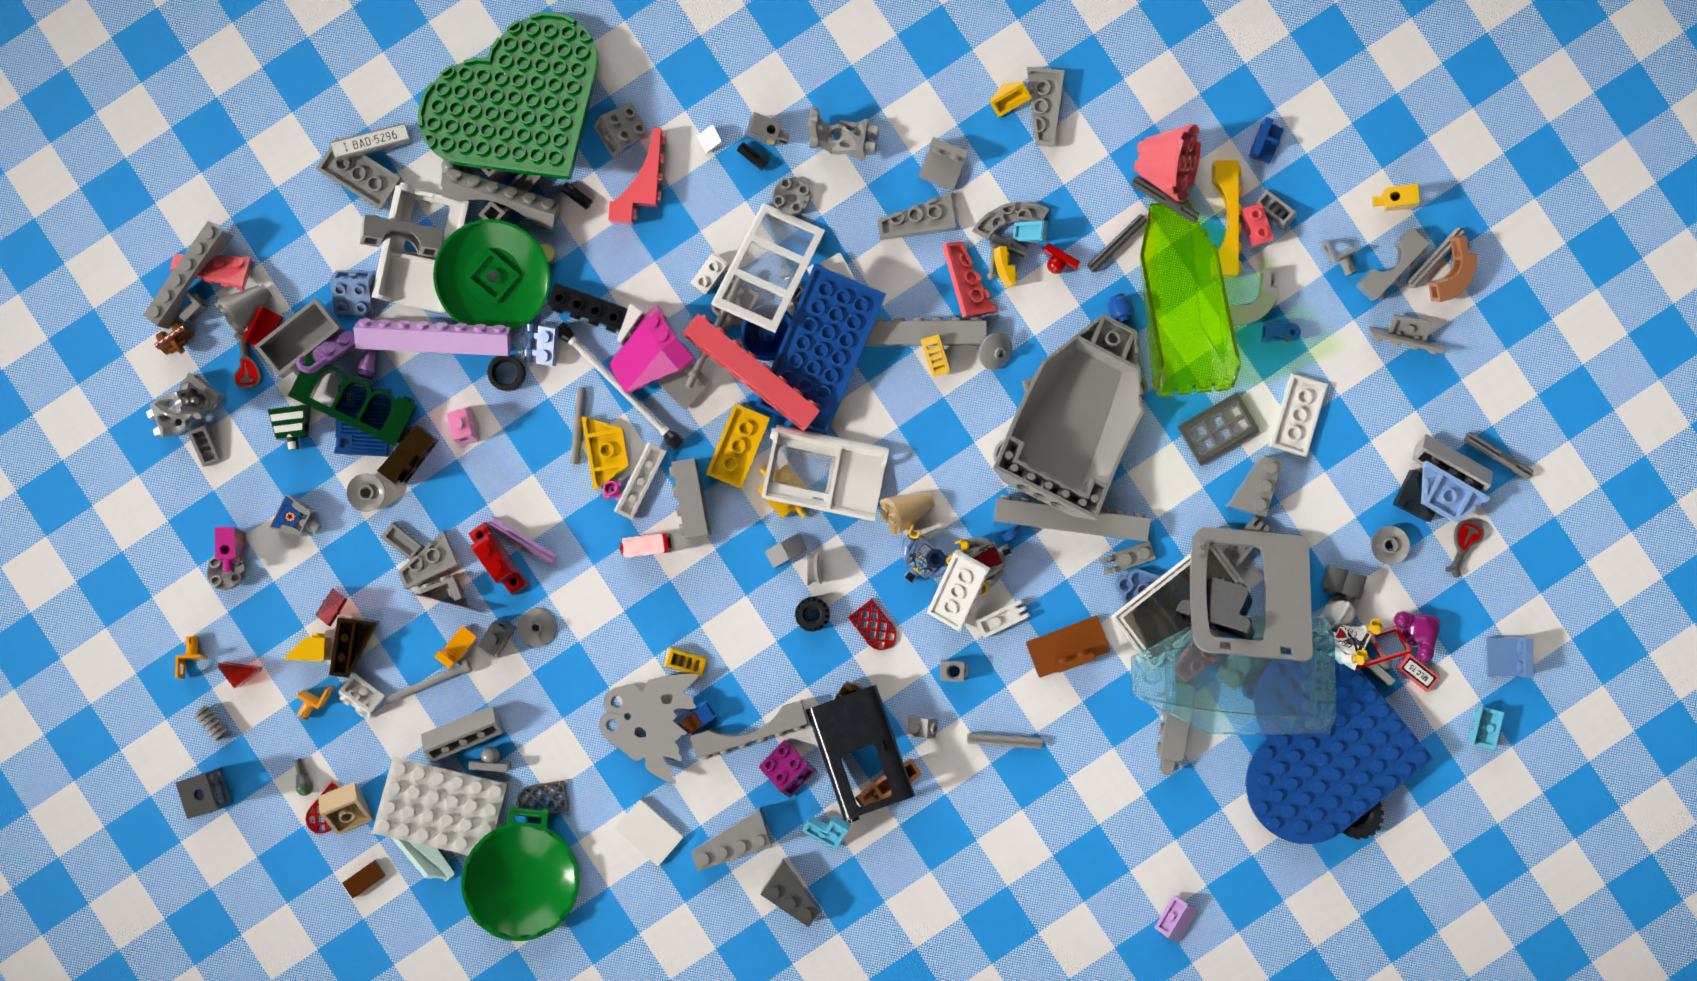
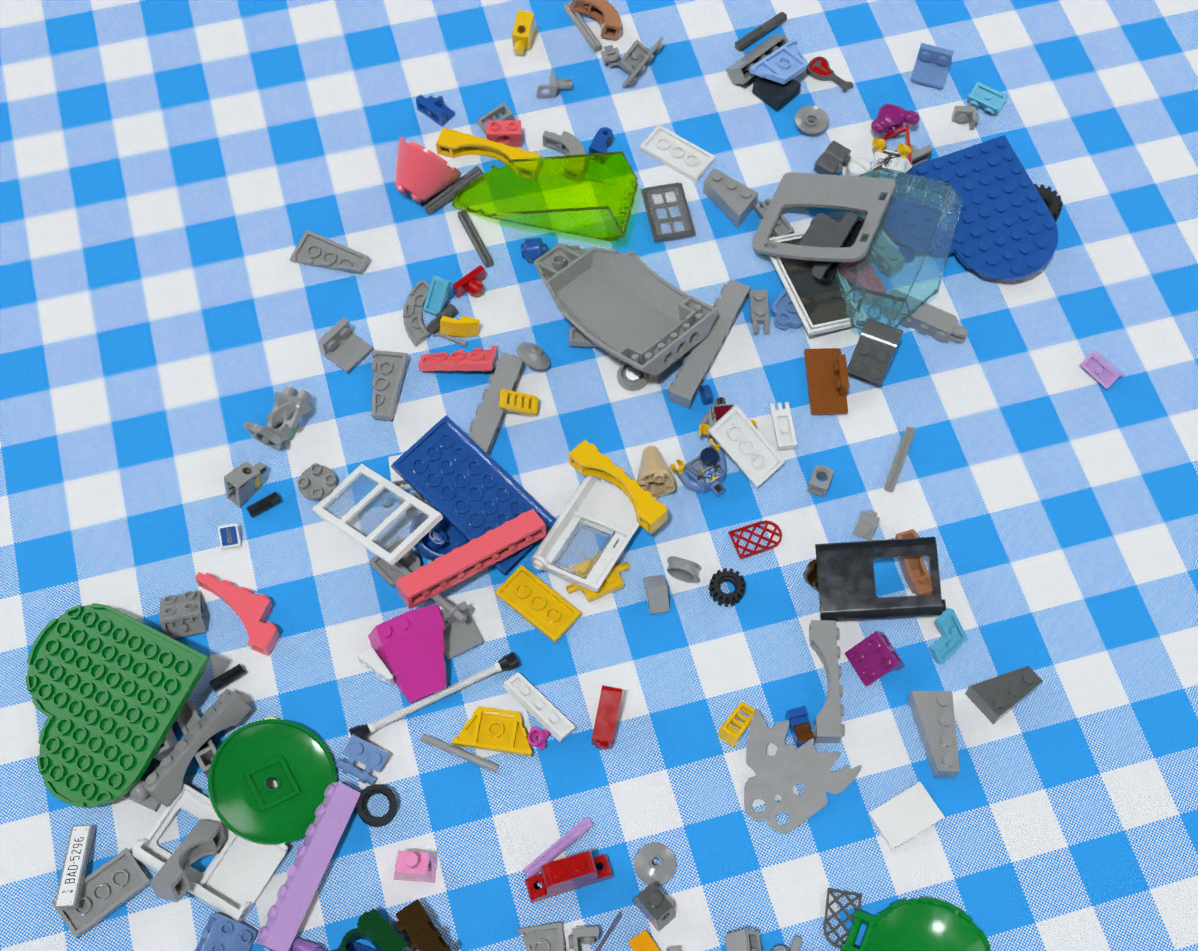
camera: 80 degrees left, 25 degrees down
(588, 307) = (344, 700): black brick -> none
(691, 498) = (574, 659): light grey brick -> none
(709, 273) = (358, 575): white plate -> none
(889, 446) = (590, 462): none -> yellow arch
(1009, 97) = (309, 278): yellow slope -> none
(1109, 687) = (874, 351): none -> dark grey brick
(1401, 303) = (610, 55): none -> light grey gear
(1408, 248) = (568, 40): light grey arch -> none
(1417, 672) = (926, 133): tile -> none
(1456, 709) = (965, 114): none -> light grey bracket

